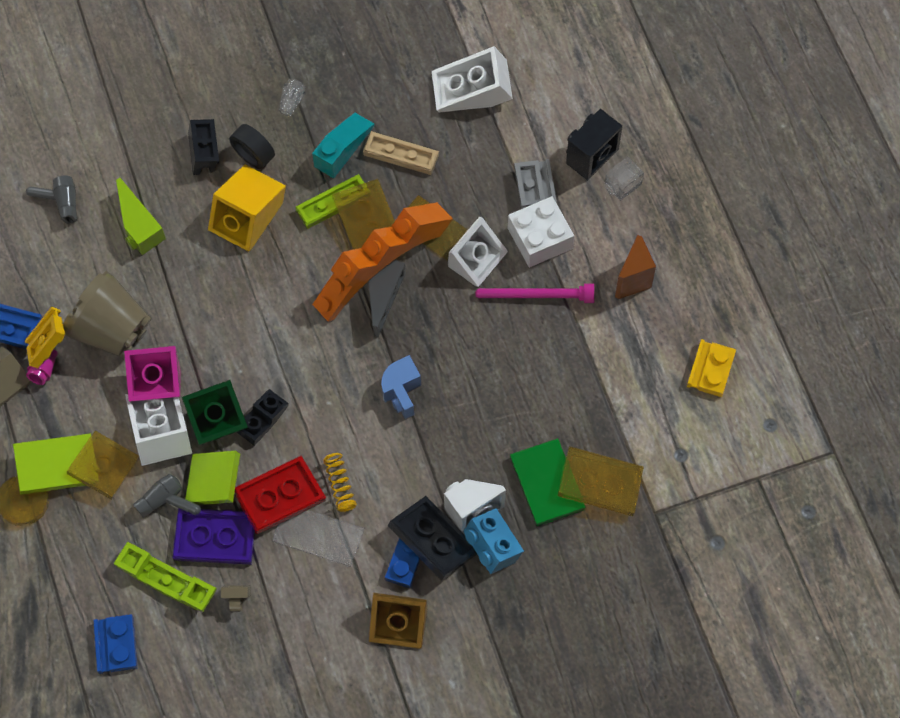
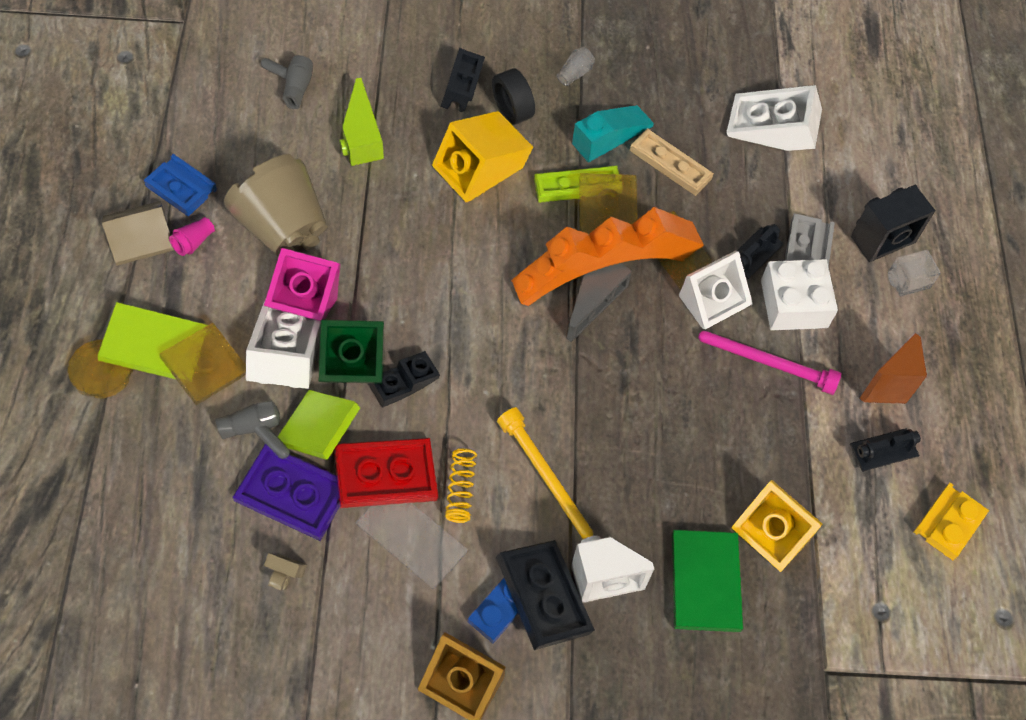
camera: 15 degrees right, 5 degrees down
(45, 337) = (202, 203): yellow plate -> none
(115, 644) = (121, 572): blue plate -> none
(164, 578) = (212, 516): lime slope -> none
(360, 420) = (512, 422): none -> yellow piece
(397, 381) = (574, 396): medium blue brick -> none
(493, 541) = (615, 626): dark azure brick -> none
(496, 204) = (759, 248): none -> black hinge
(584, 422) = (776, 526): none -> yellow slope
(600, 481) = (773, 605): clear yellow tile -> none
(646, 331) = (886, 449): none -> black hinge

